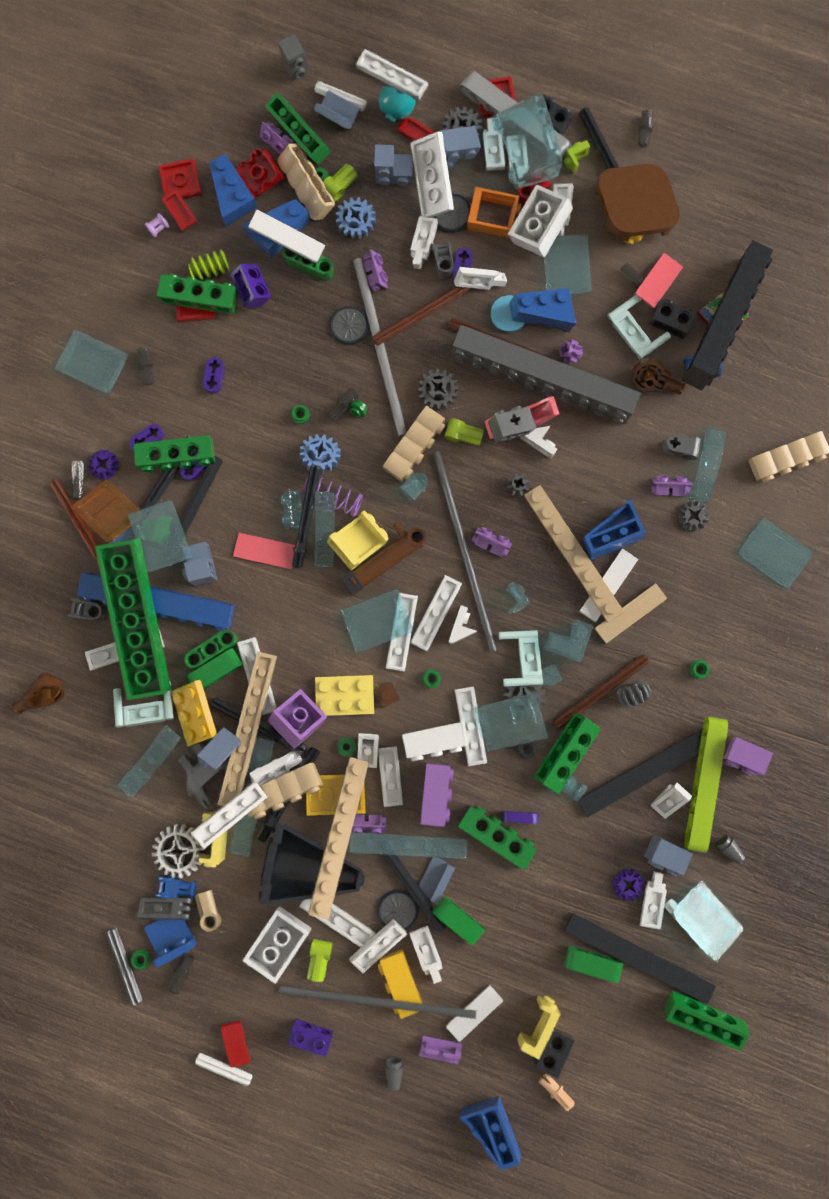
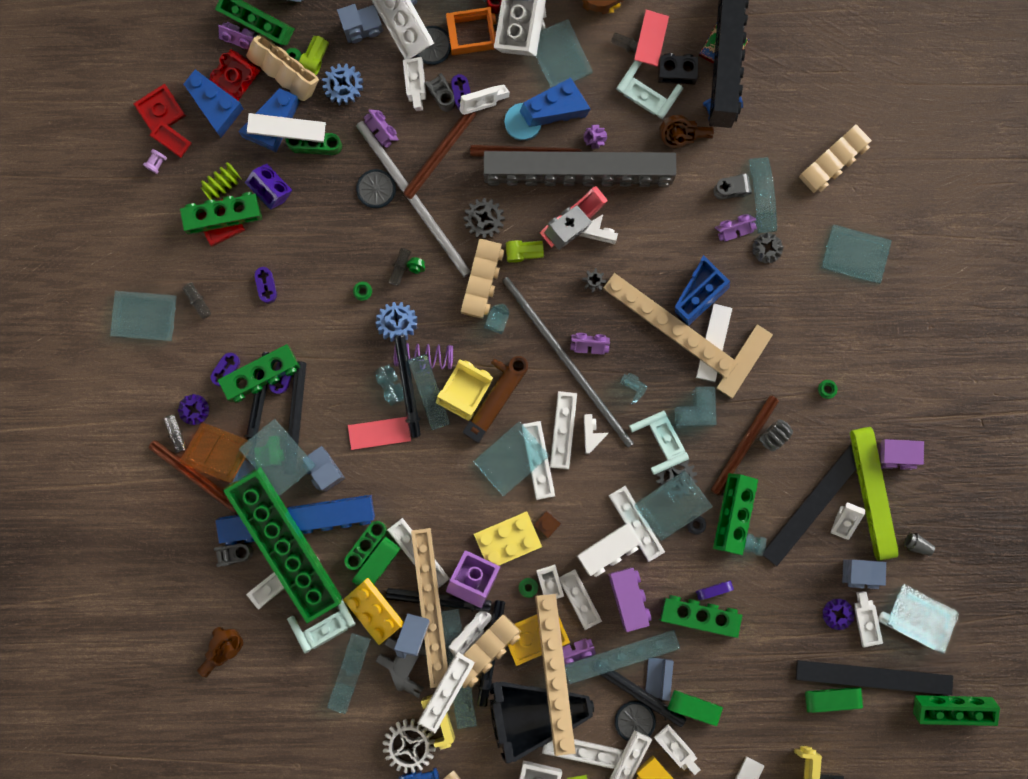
camera: 25 degrees left, 0 degrees up
(437, 679) = (578, 498): green plate -> none
(551, 675) = (693, 447): clear light blue tile -> none

